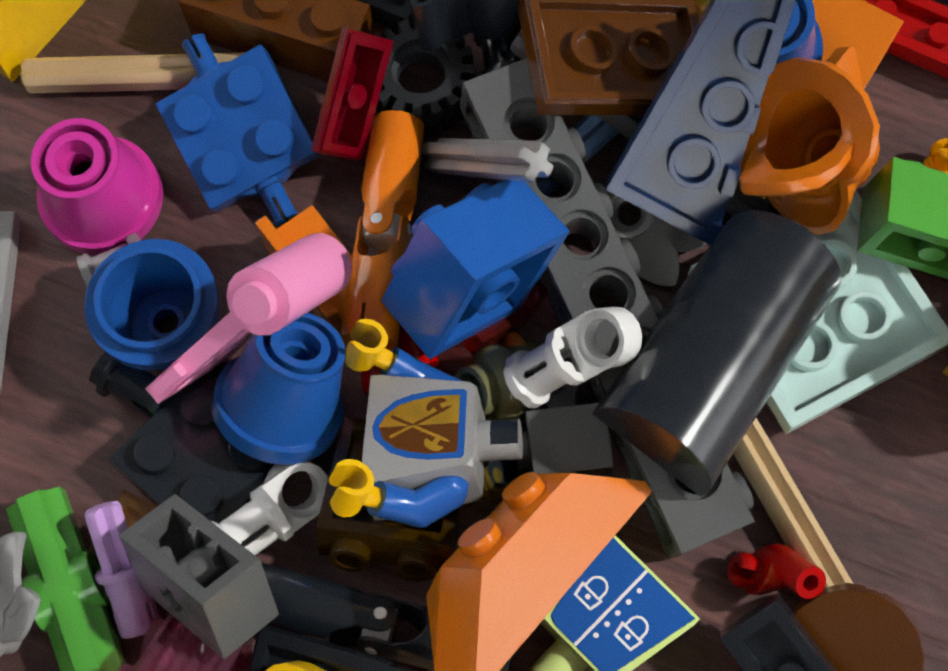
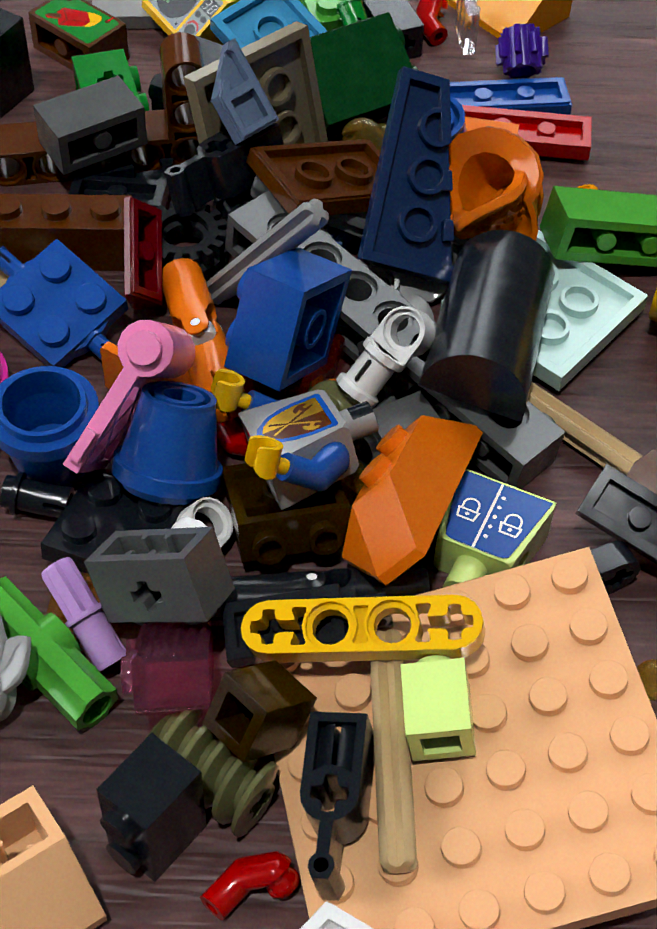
camera: 25 degrees left, 20 degrees down
(775, 569) = (581, 477): red arm -> none

